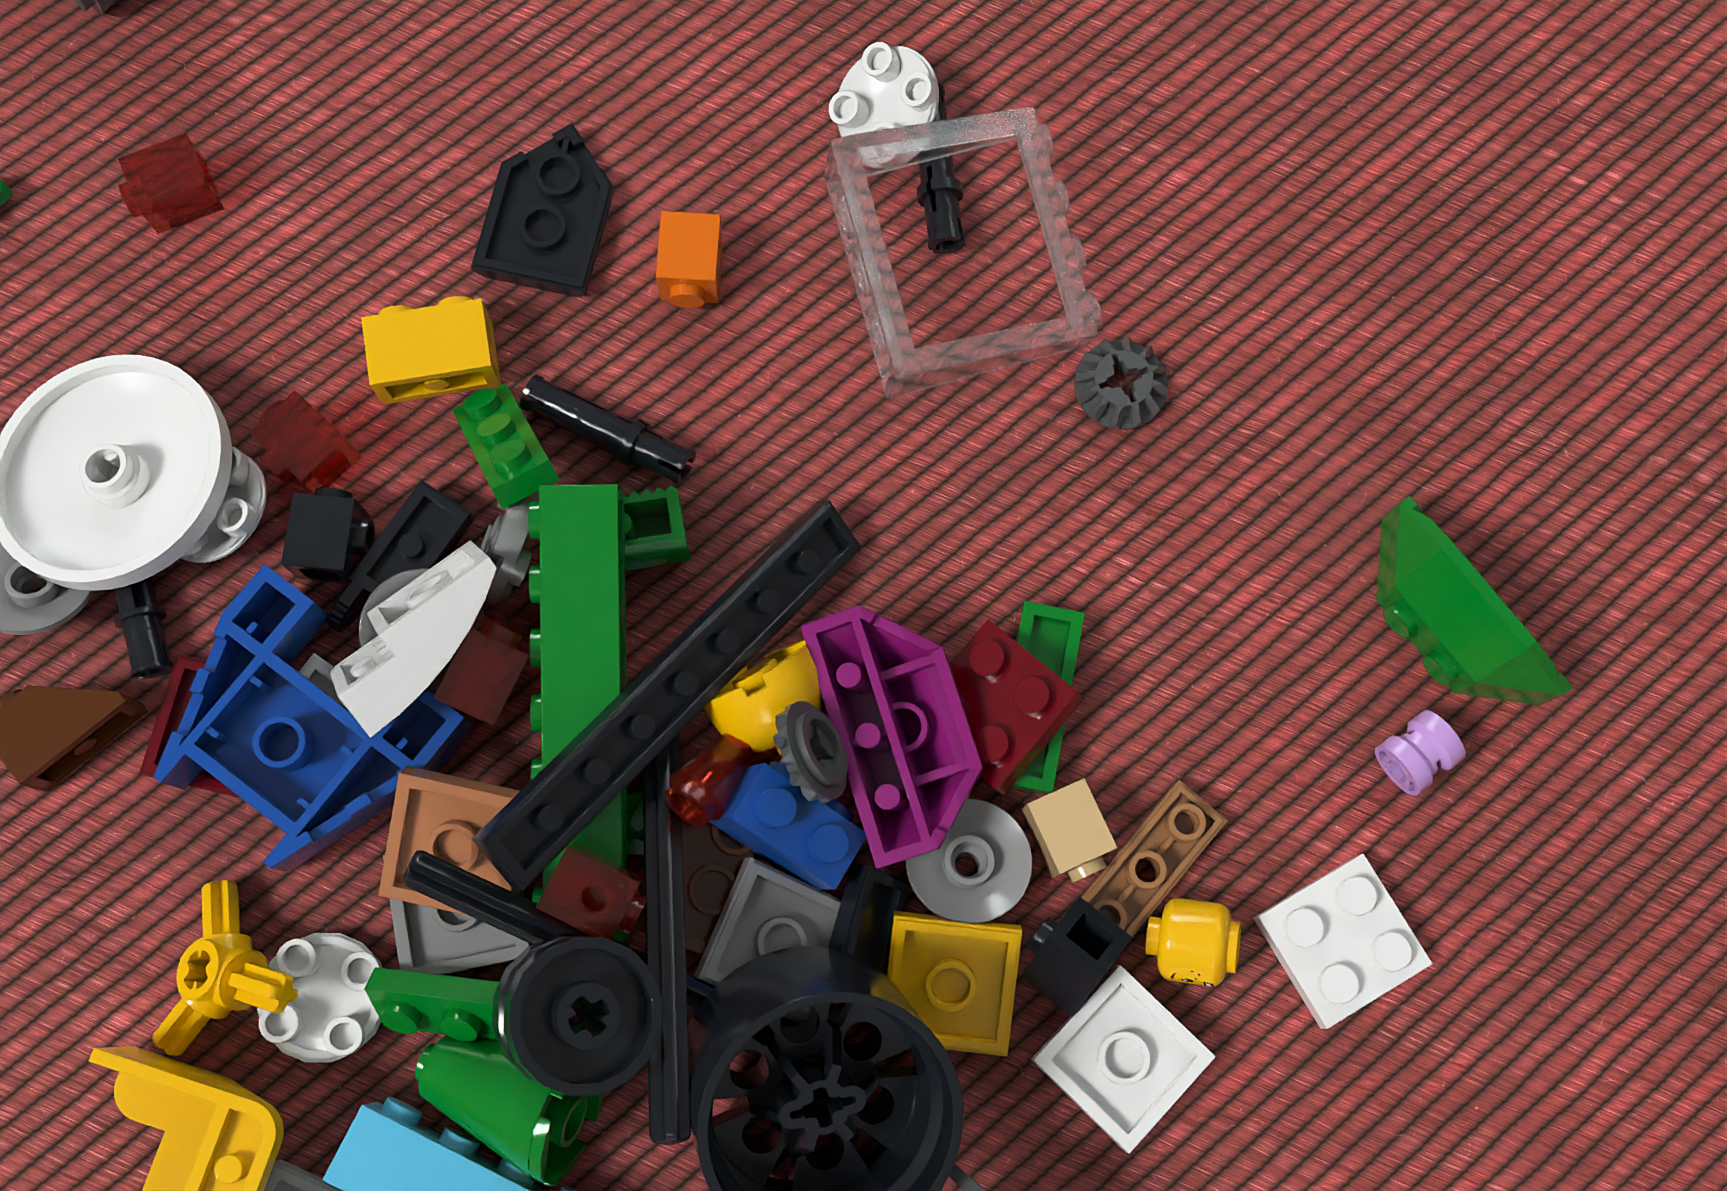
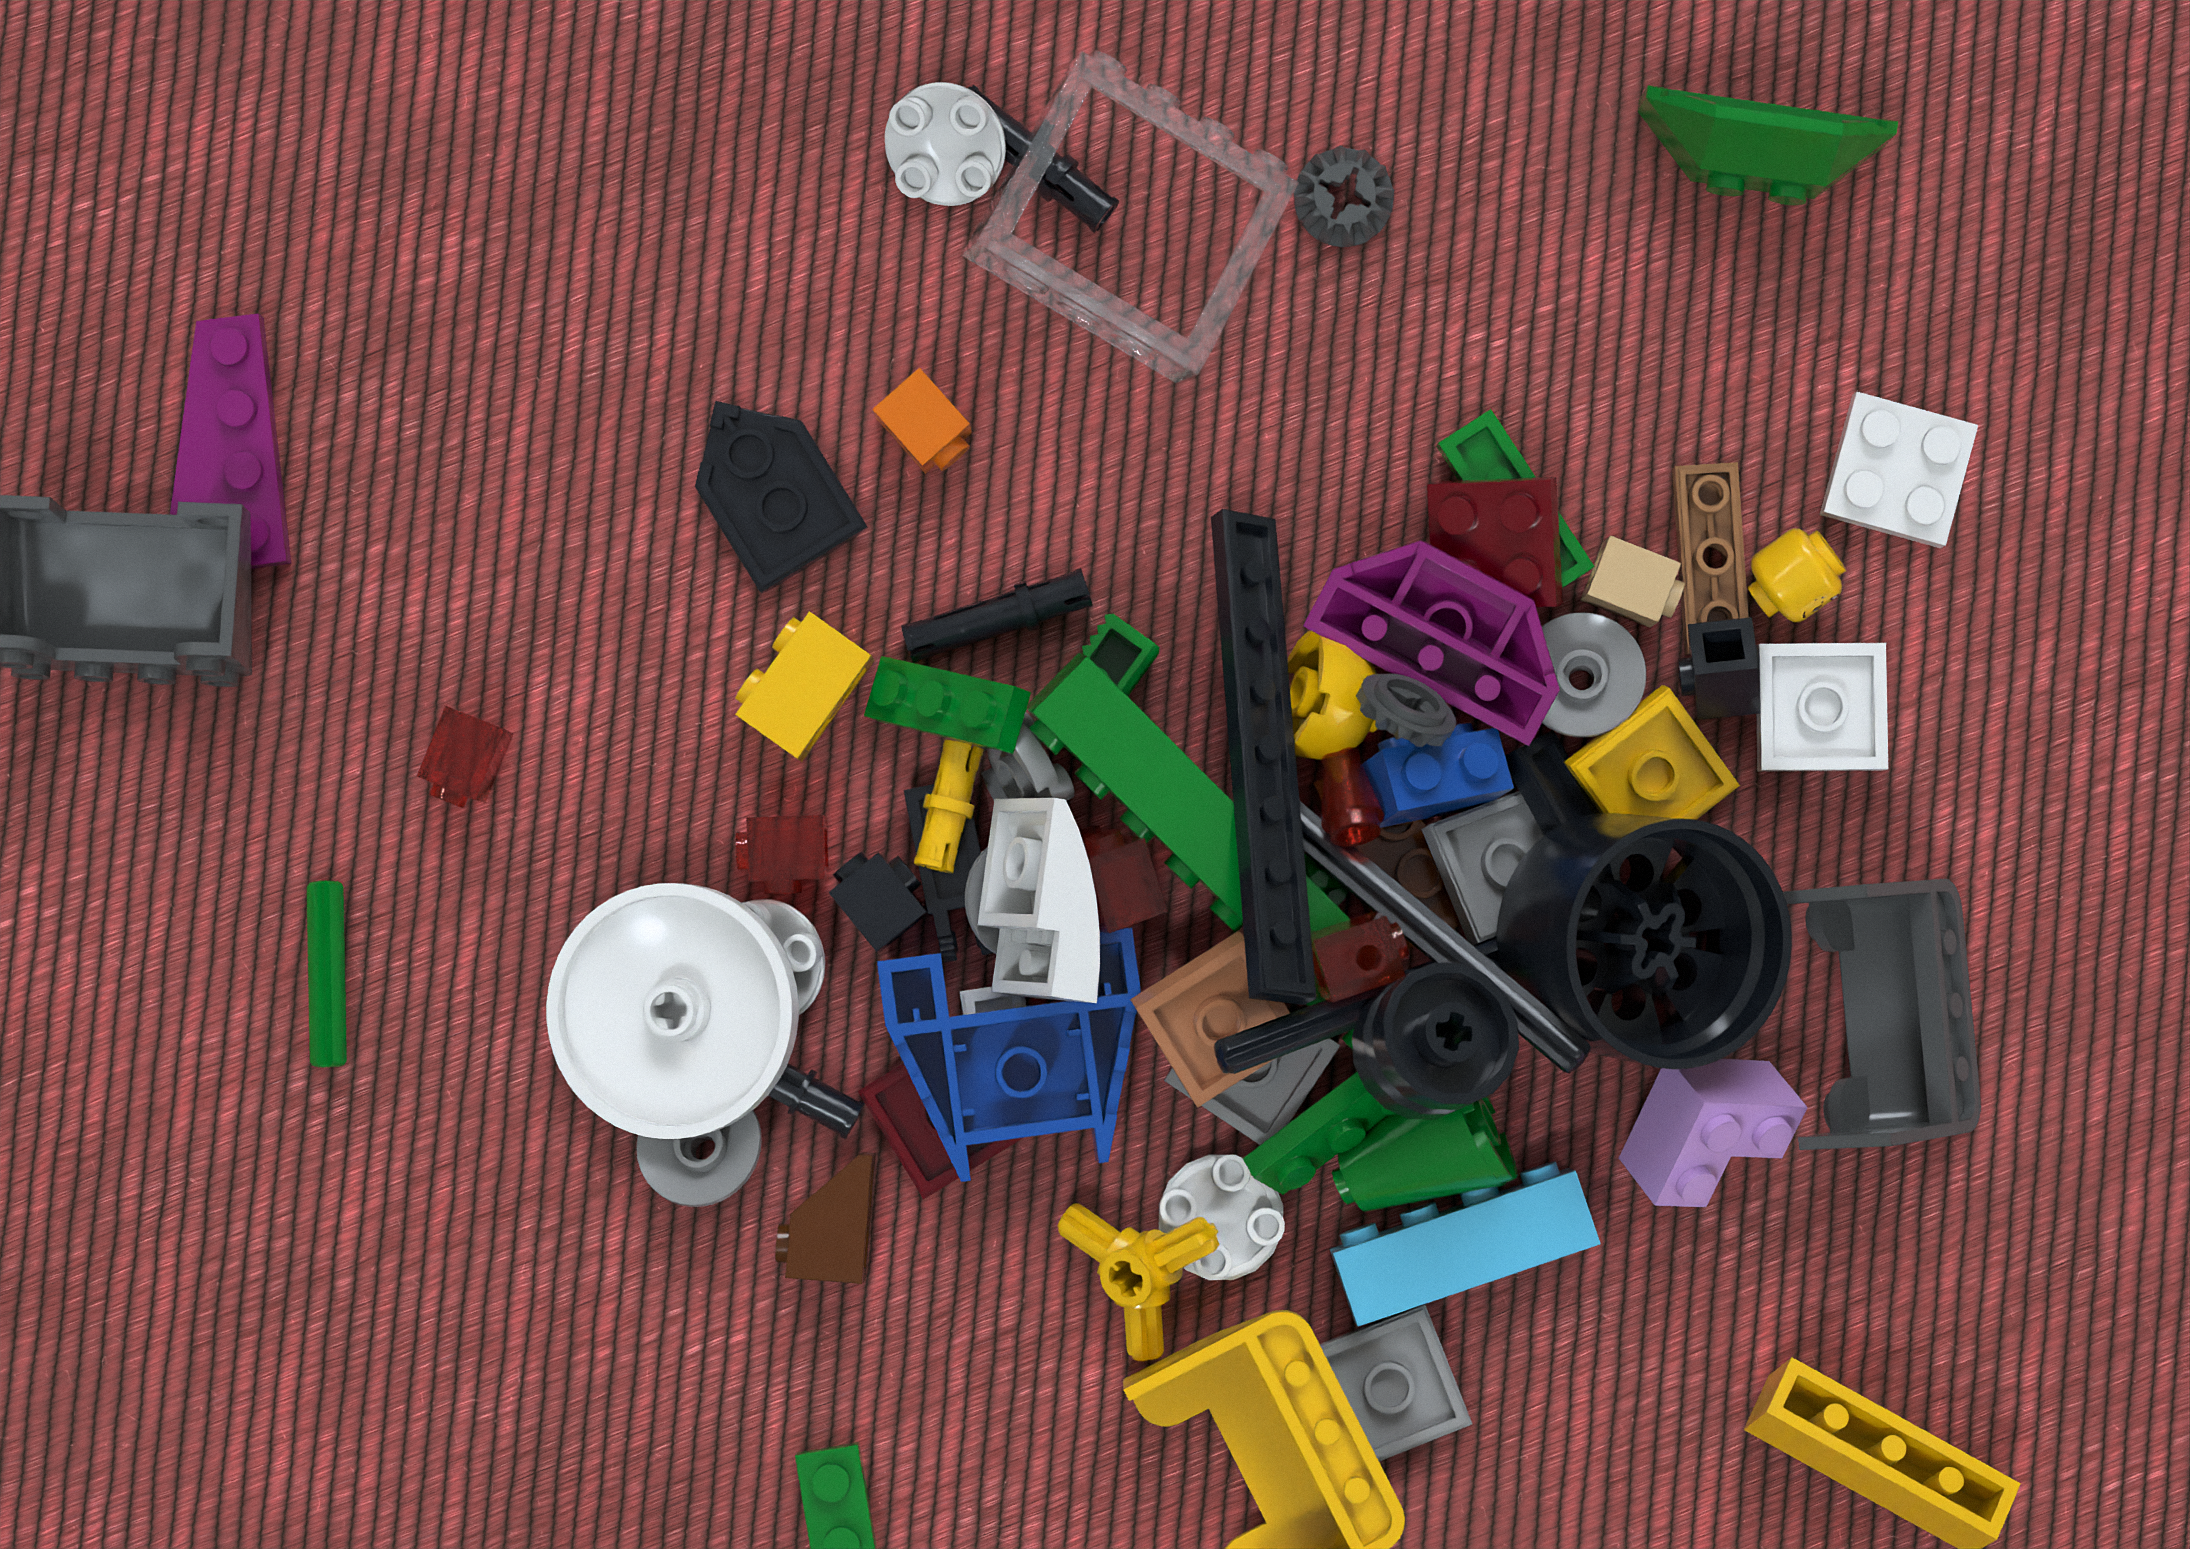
camera: 35 degrees left, 10 degrees up
(433, 515) = (948, 806): none -> yellow pin
(1420, 752) = (1830, 281): lavender wheel -> none

